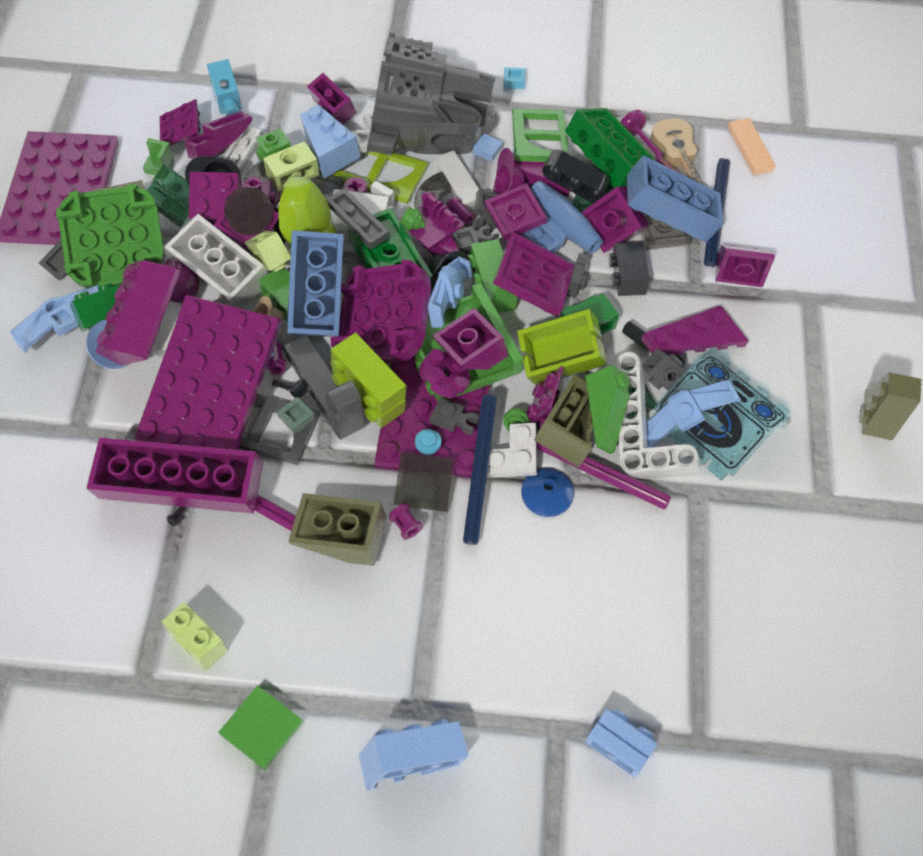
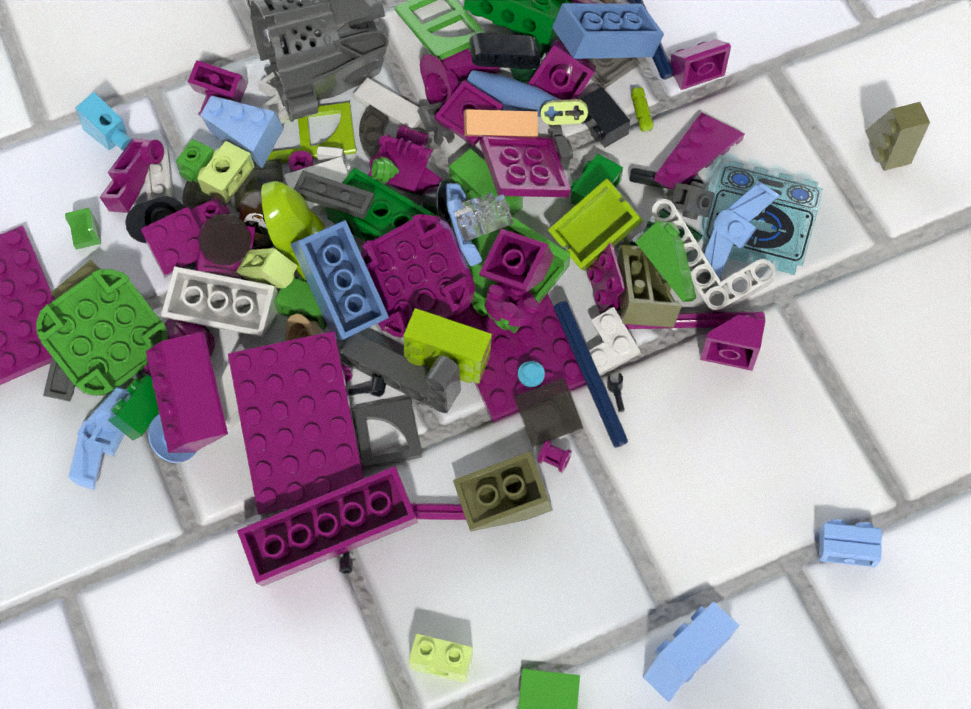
camera: 25 degrees left, 5 degrees up
(170, 195) = (129, 257): clear green slope -> none
(180, 123) = (79, 182): magenta hinge -> none
(246, 125) = (152, 151): none -> magenta tile
(296, 415) = (397, 412): sand green tile -> none
(449, 415) = (533, 339): dark grey plate -> none
(464, 289) = (483, 216): none -> clear brick
(466, 236) = (441, 159): dark grey plate -> none
(487, 147) = (396, 58): light blue tile -> none
(497, 493) = (616, 389): none -> black hand
(515, 416) = (590, 310): bright green plate -> none
(535, 230) = (500, 123): none -> light nougat tile
(546, 502) = (657, 374): blue dish -> none
(593, 251) = (565, 118): none -> yellowish green beam
(624, 506) = (735, 342): none -> magenta slope
(669, 279) = (642, 109): none -> lime axle

